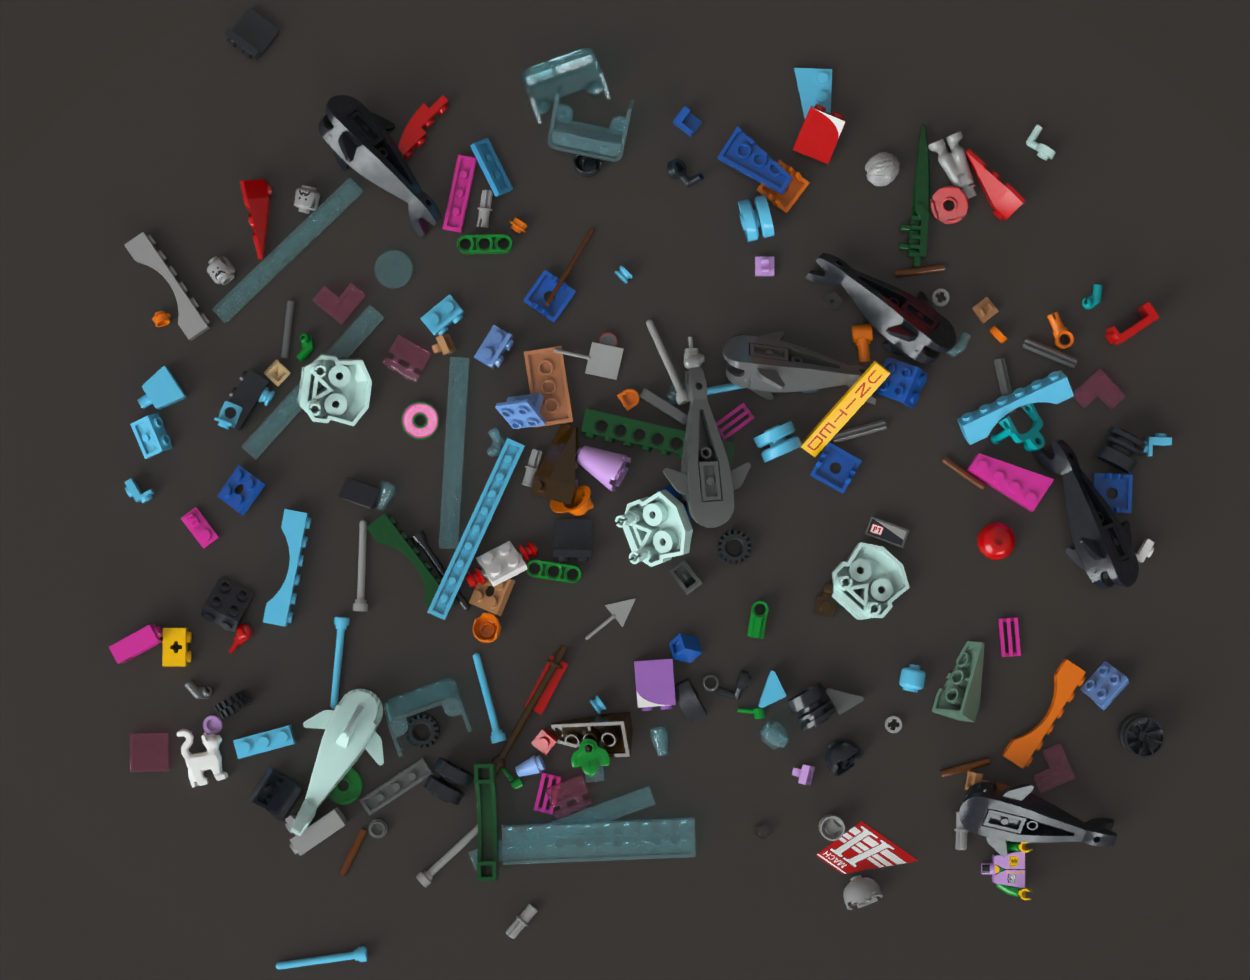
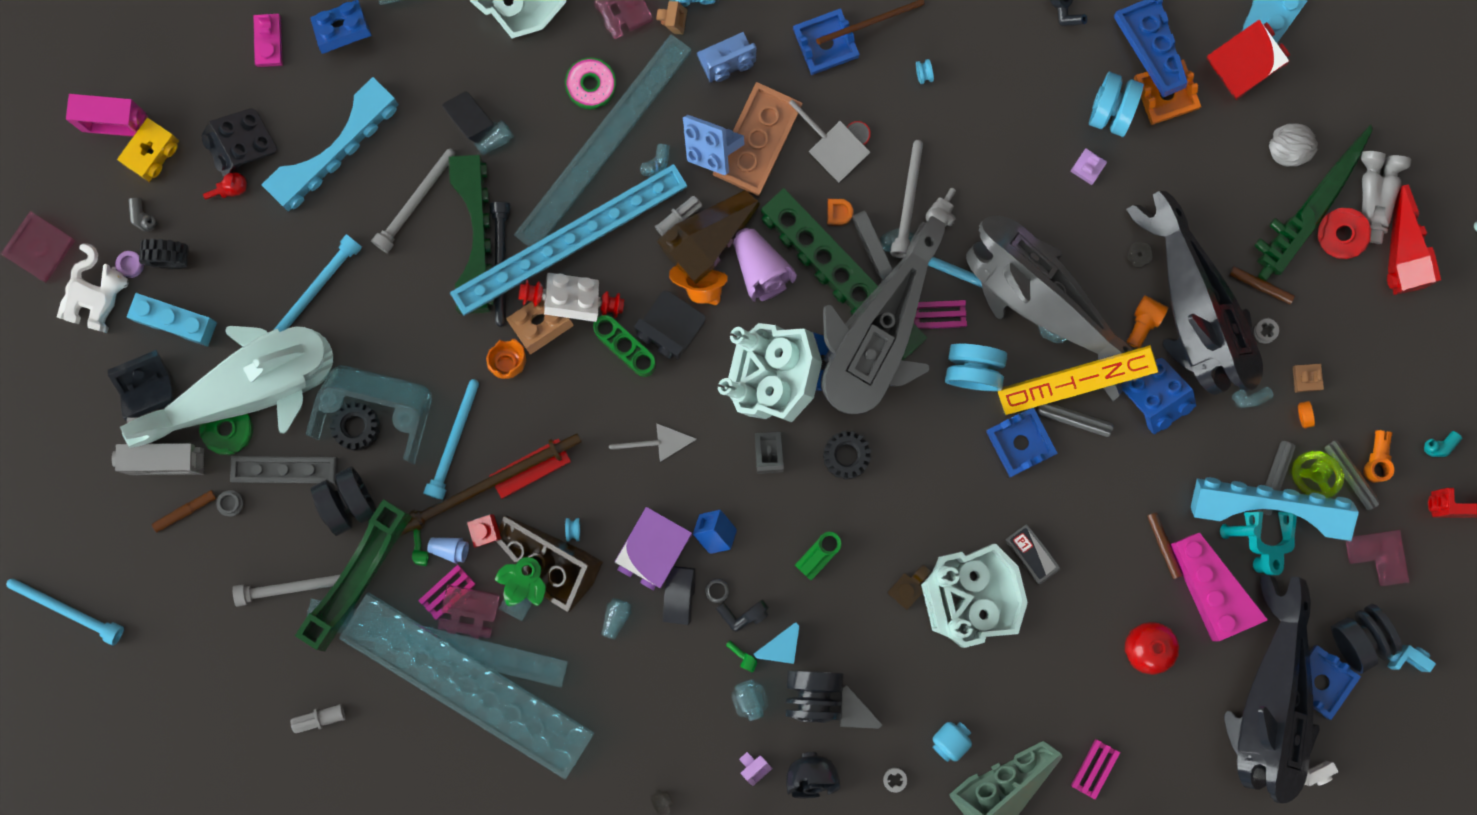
camera: 30 degrees right, 5 degrees down
(1028, 366) = (1325, 465): none -> clear neon green piece

